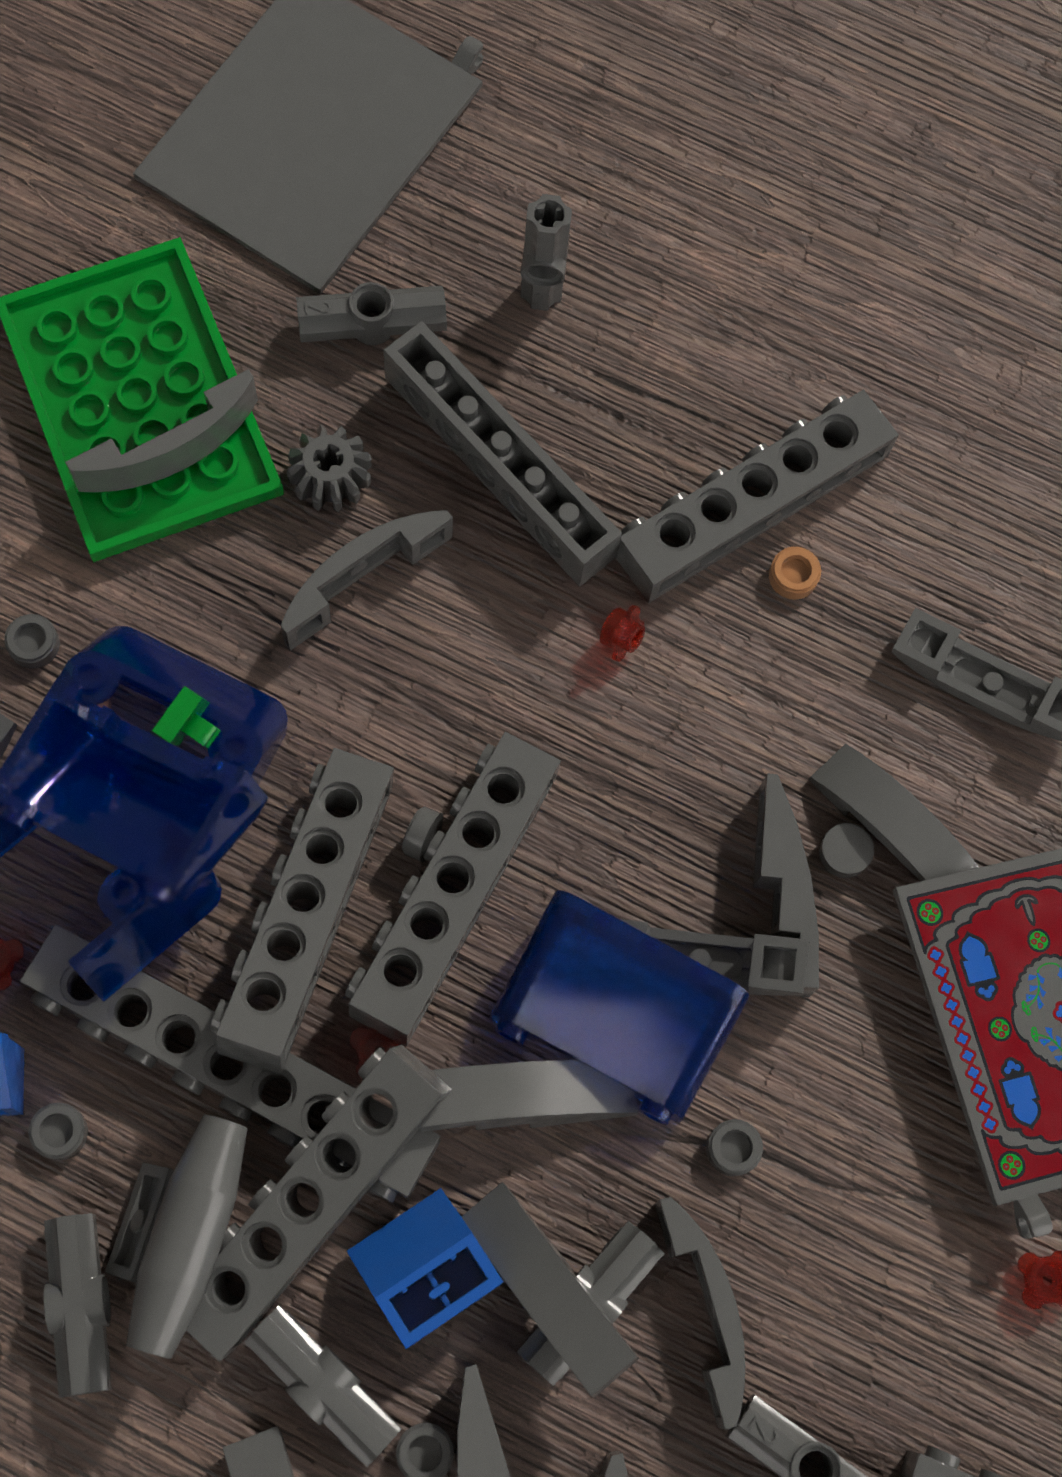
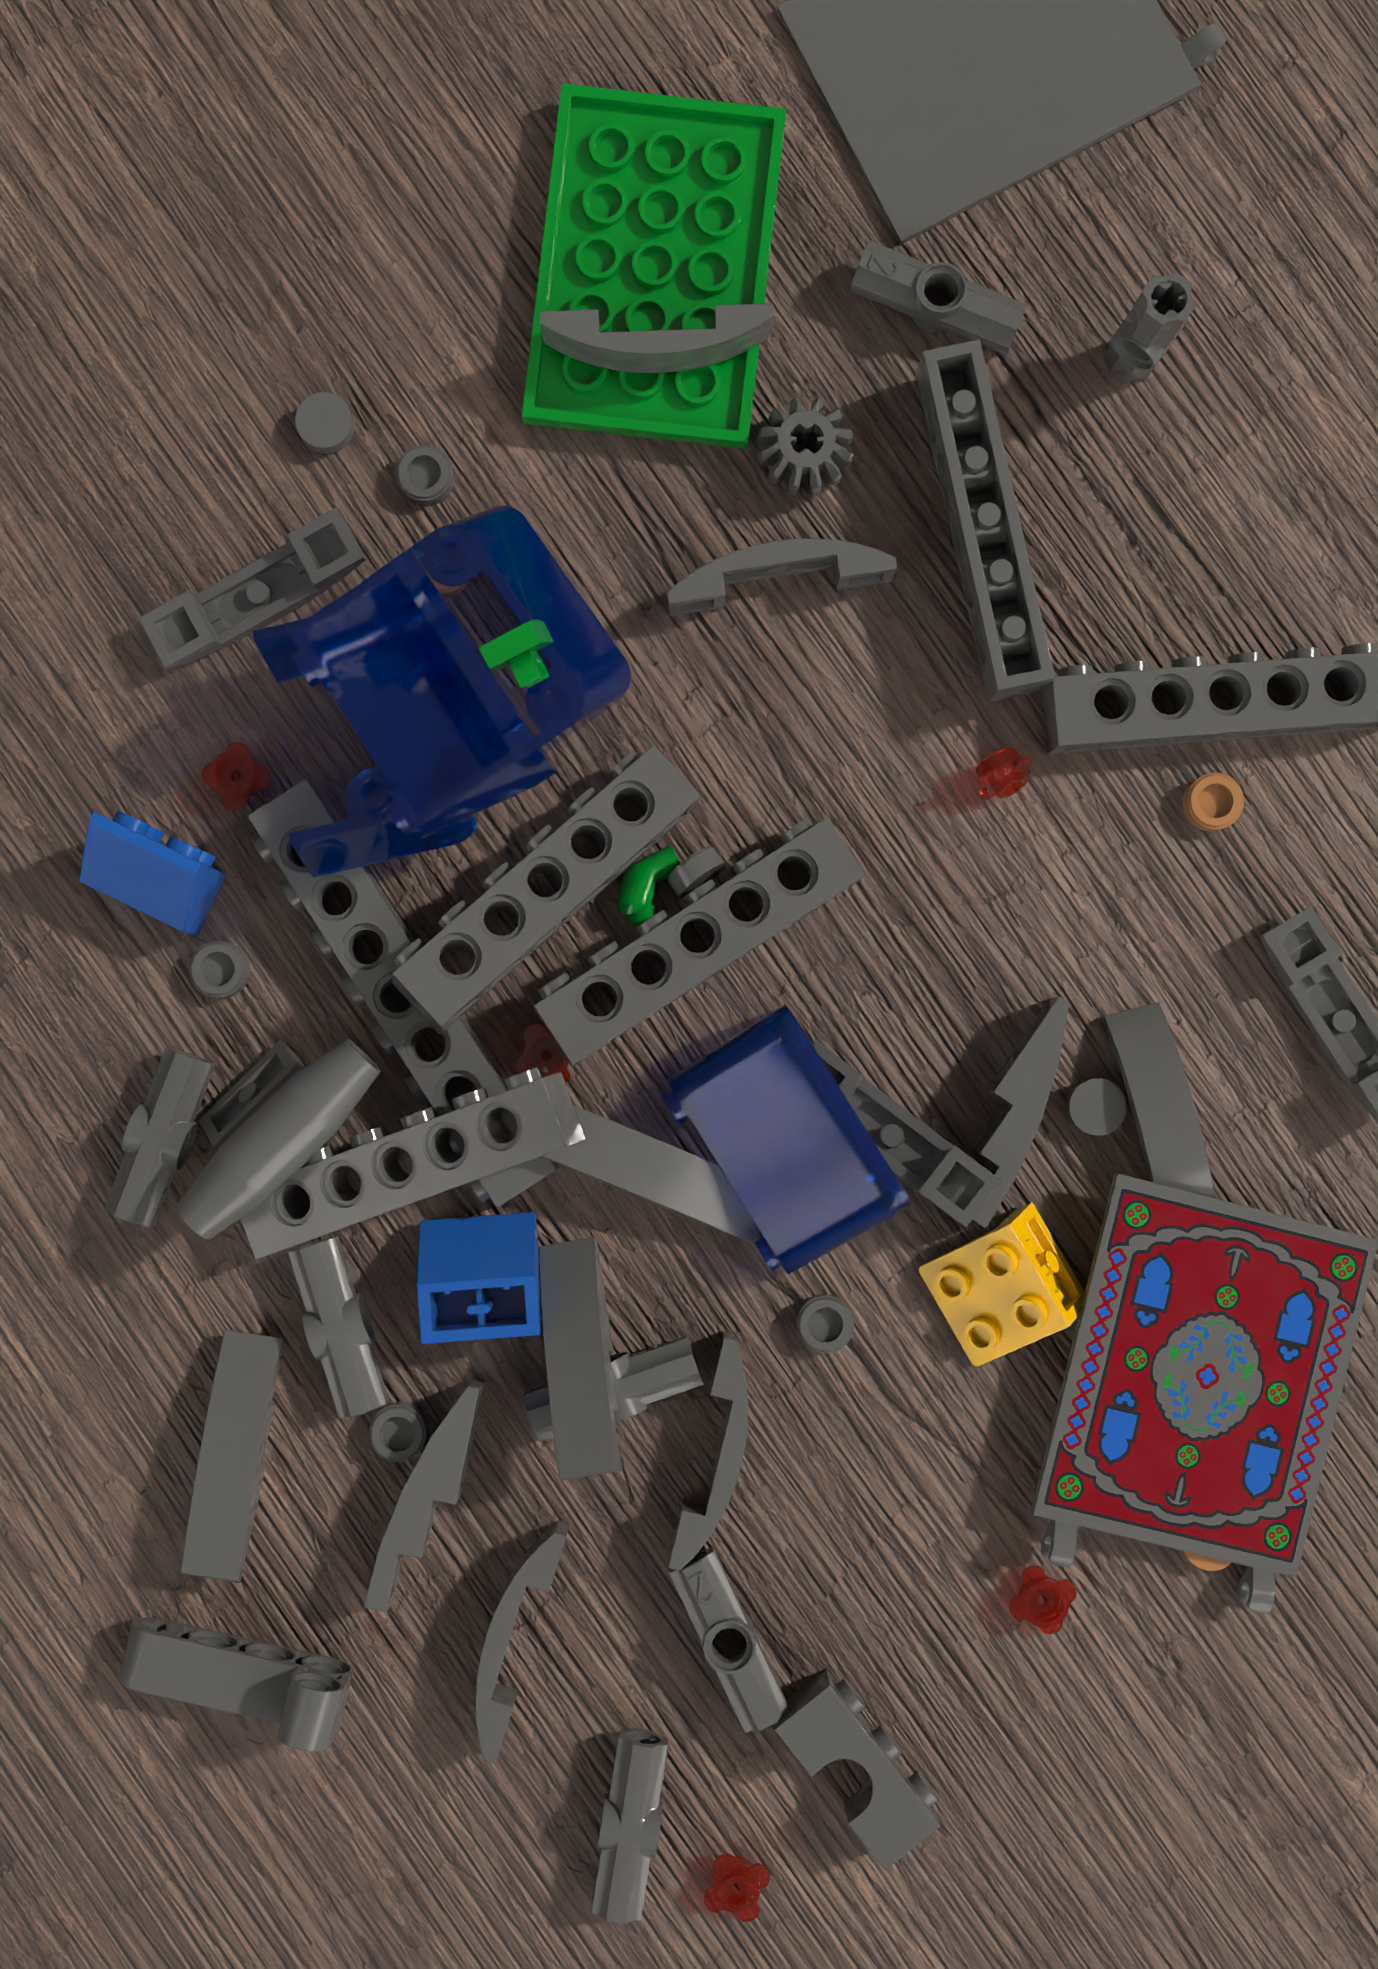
camera: 35 degrees right, 15 degrees up
(381, 868) = (640, 883): none -> green arm
(860, 1035) = (1005, 1287): none -> yellow bracket

